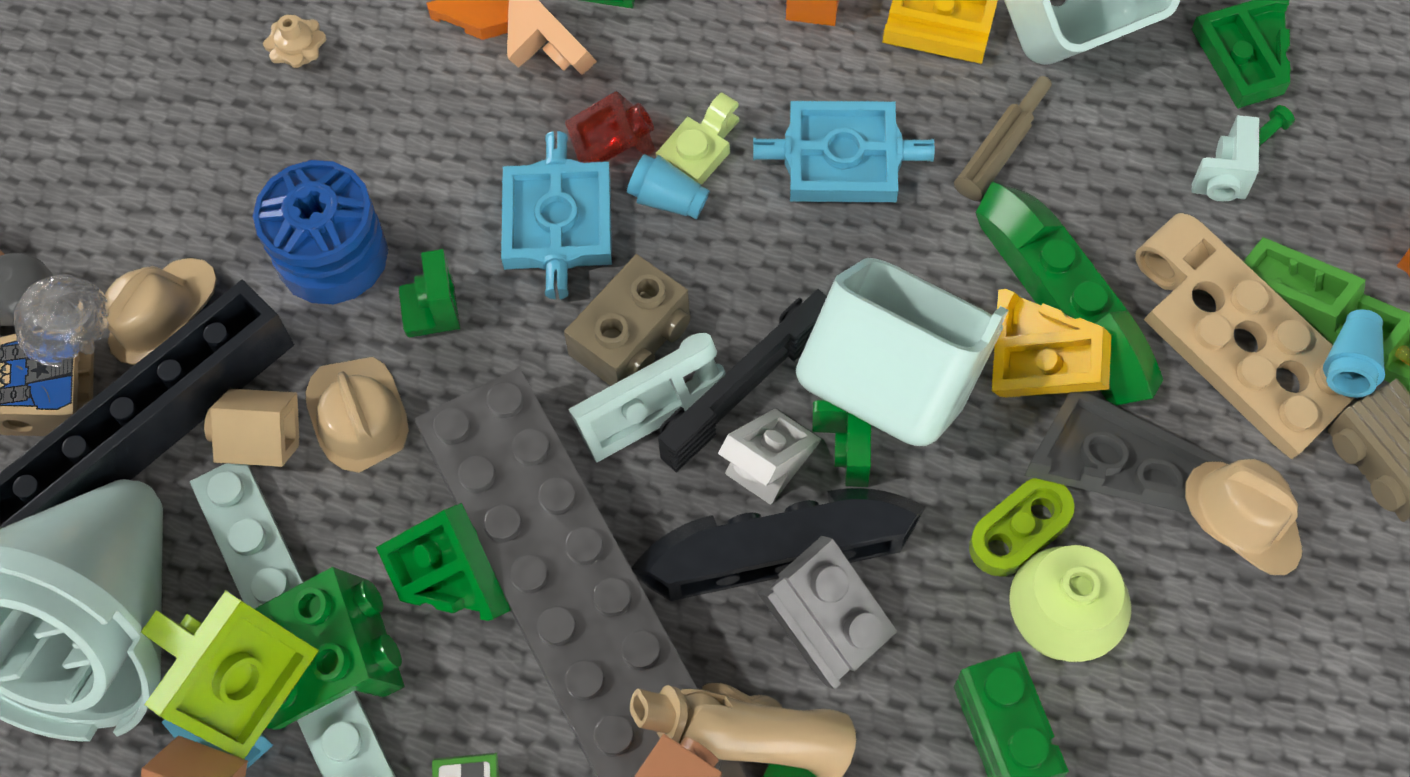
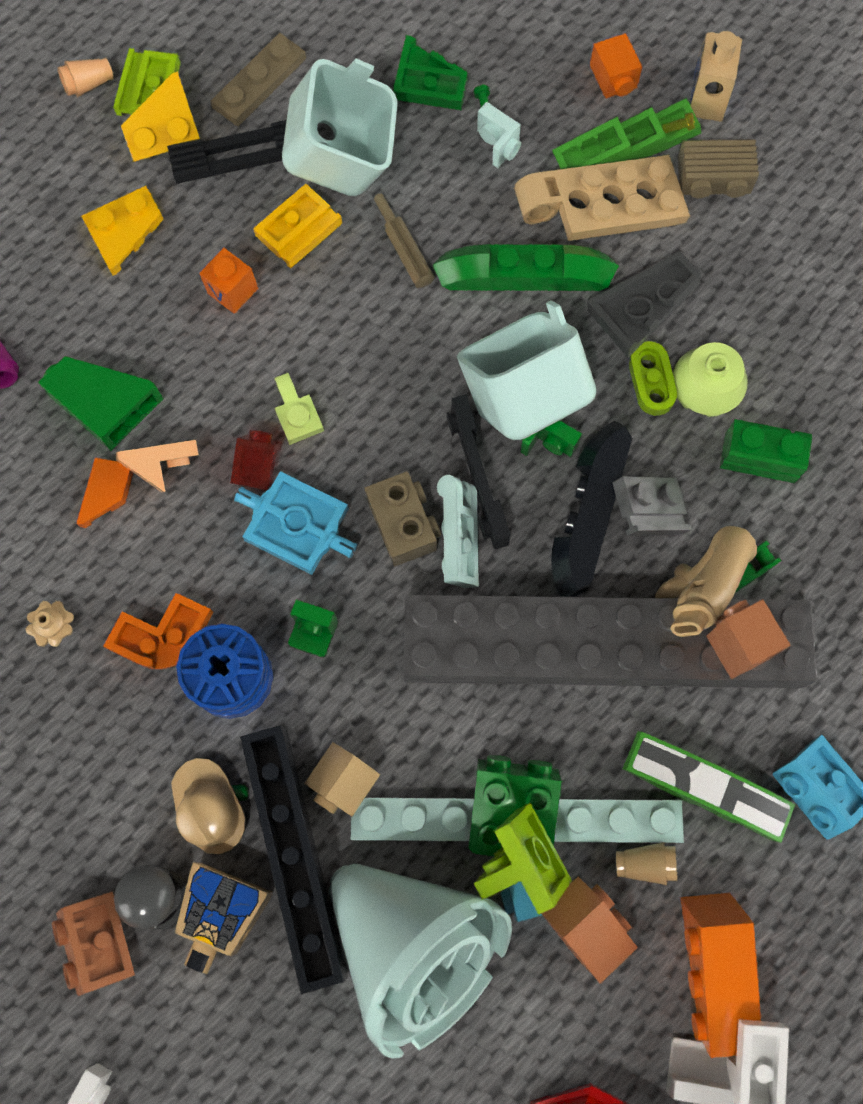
camera: 60 degrees left, 10 degrees up
(60, 319) = (196, 870): clear hair -> none
(321, 134) = (160, 645): none -> orange plate
(356, 413) = (357, 714): tan piece -> none
(444, 566) = (507, 705): green wing -> none
(666, 187) = (317, 448): medium azure cone -> none
(767, 453) = (533, 485): white slope -> none
(843, 151) = (356, 333): medium azure plate -> none
(1047, 351) = (572, 288): yellow wing -> none
(1247, 510) = (711, 260): tan piece -> none
(1357, 356) = (661, 150): medium azure cone -> none

